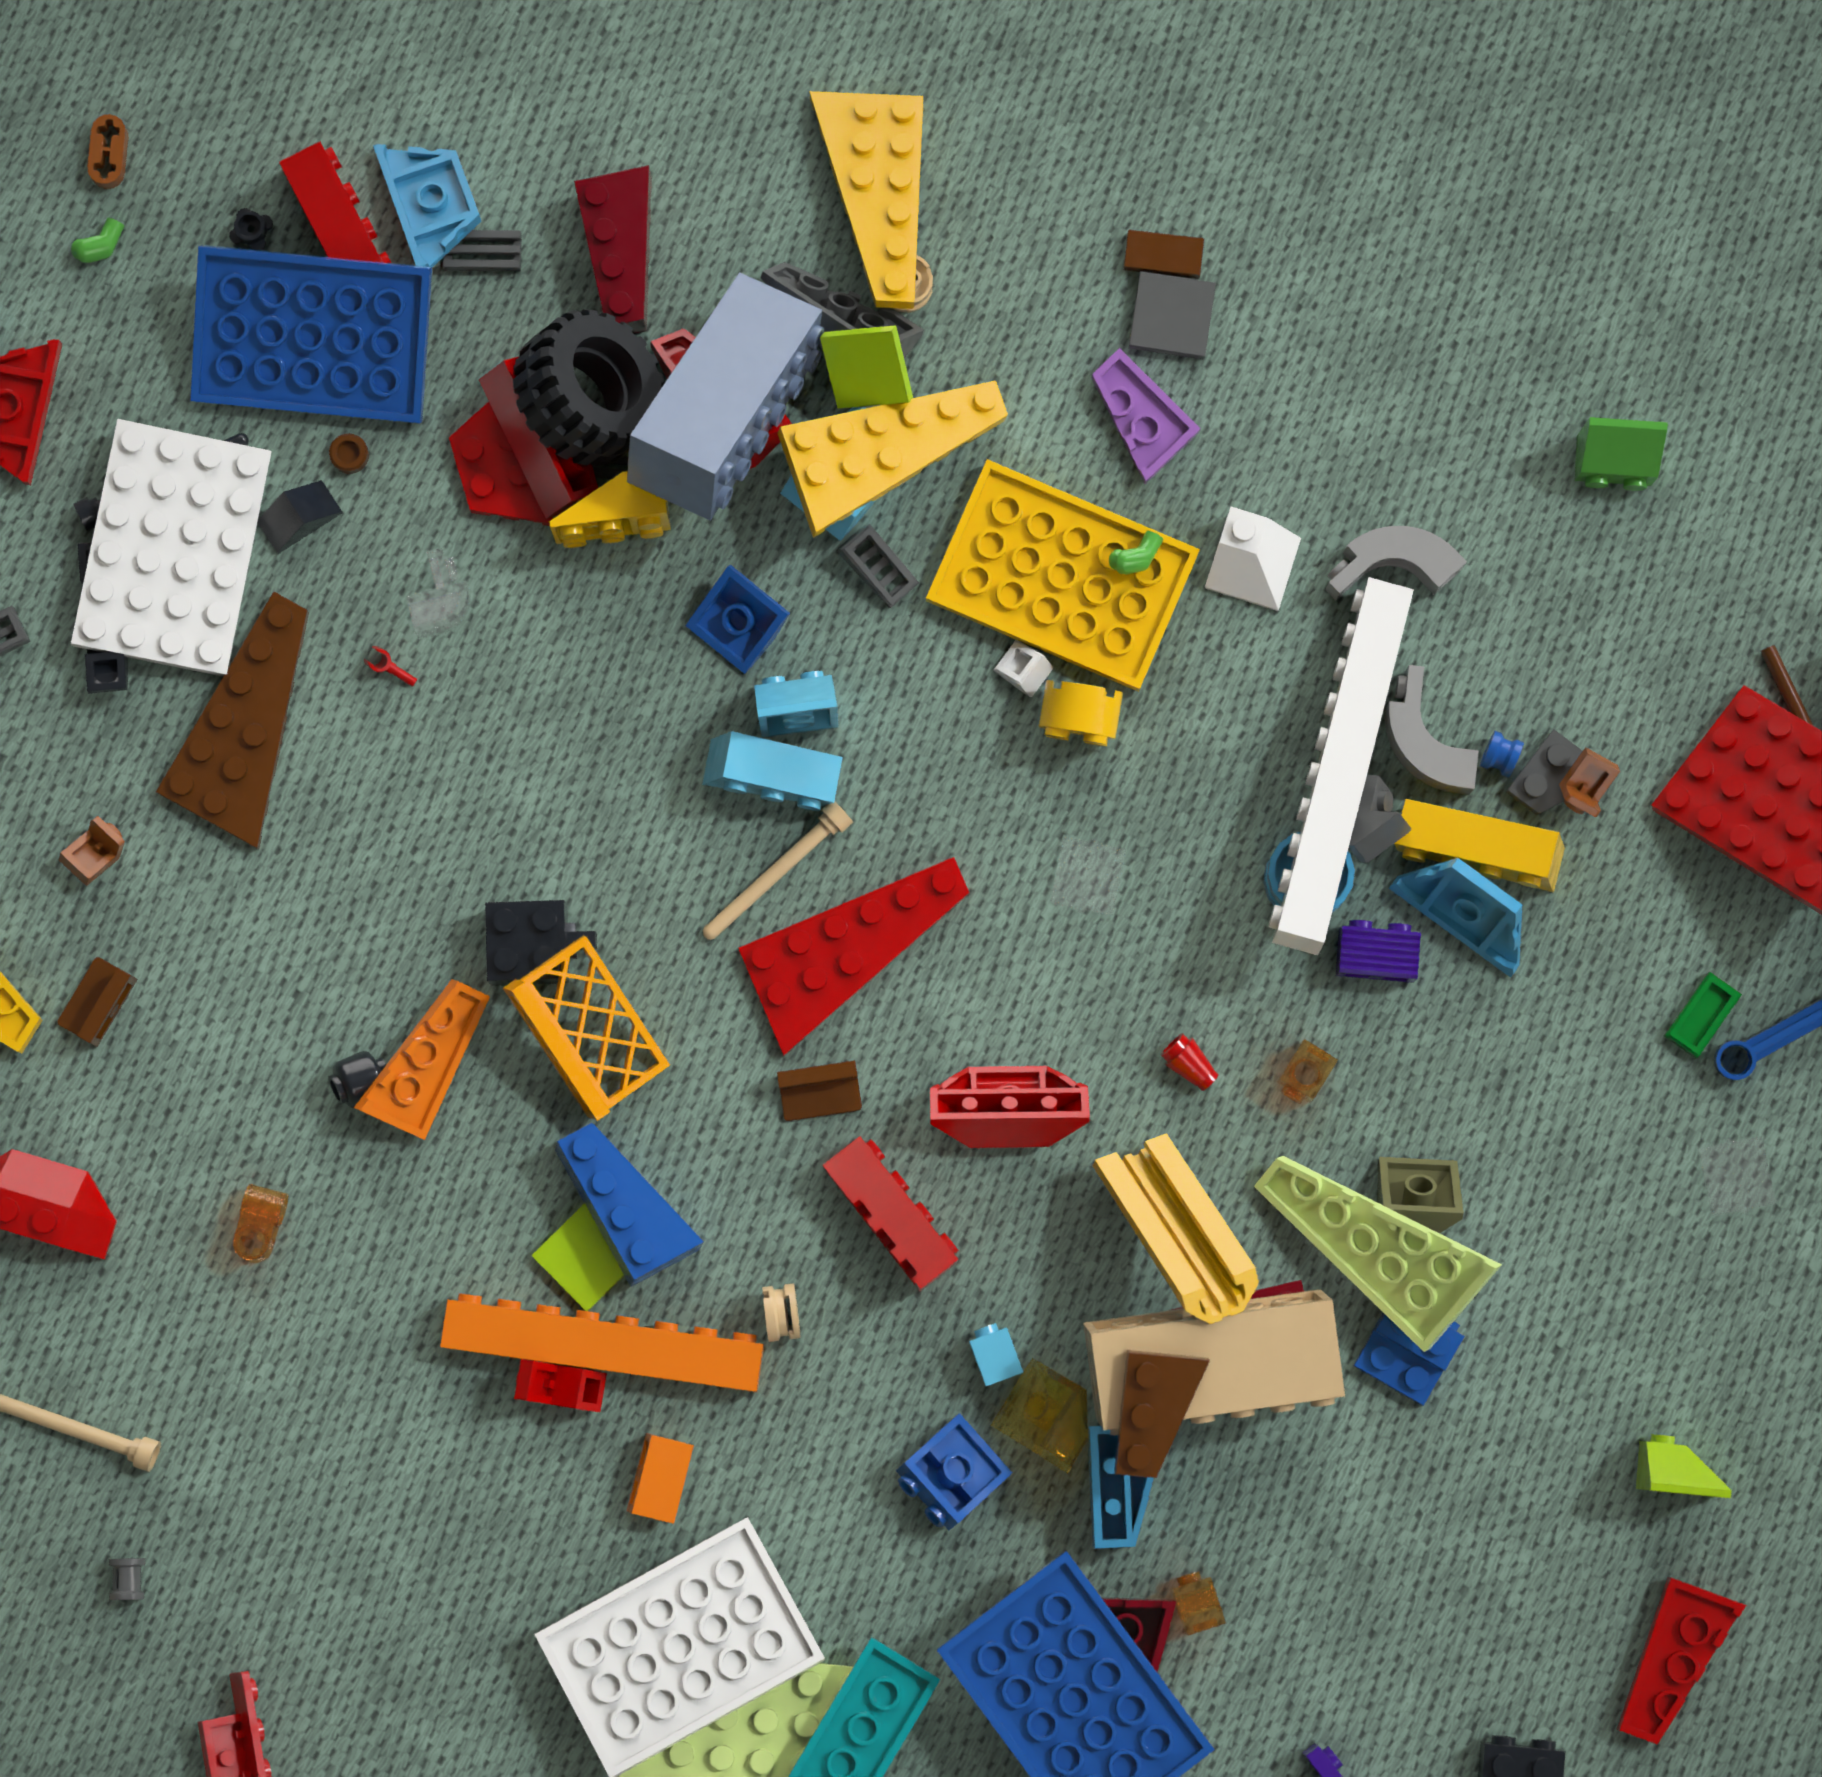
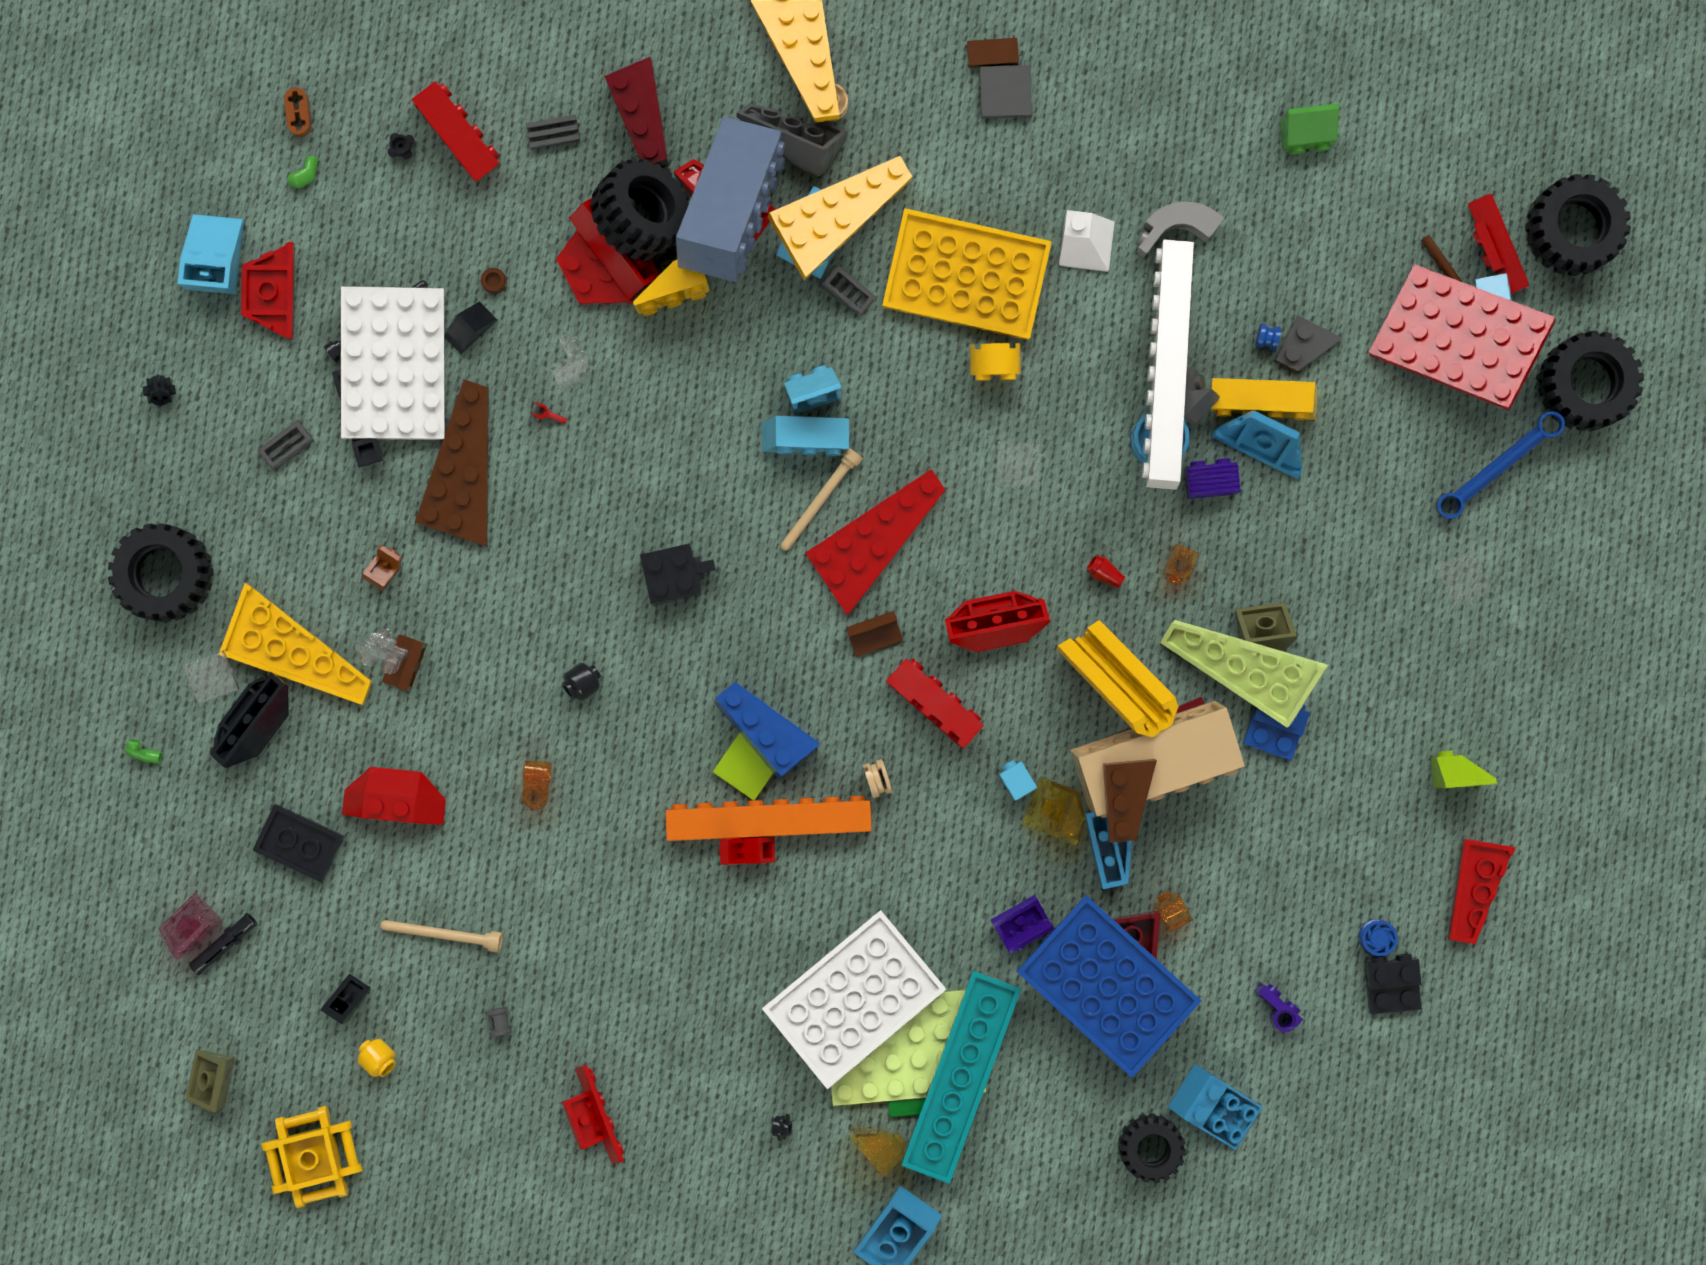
camera: 10 degrees left, 5 degrees up
(67, 970) = (383, 647): none -> clear hips
(310, 334) = (454, 207): blue plate -> none
(422, 1068) = (621, 664): orange wing -> none
(429, 199) = (513, 105): dark azure wing -> none
(559, 1048) = (703, 637): light orange fence -> none
(660, 1478) = (820, 896): orange hinge -> none
(738, 619) = (764, 341): blue slope -> none
(866, 367) = (816, 163): lime tile -> none
(952, 1473) = (1004, 858): blue plate -> none
(961, 1581) = (1022, 924): none -> dark purple bracket
(1024, 668) = (953, 338): white slope -> none
(1136, 559) = (1012, 255): bright green arm -> none
(1143, 414) = (999, 160): medium lavender wing -> none
(1421, 754) = (1215, 346): light grey arch -> none
(1508, 1706) = (1378, 937): none -> blue wheel
(1588, 782) = (1326, 345): dark orange bracket -> none
(1702, 1015) = (1424, 480): green tile -> none

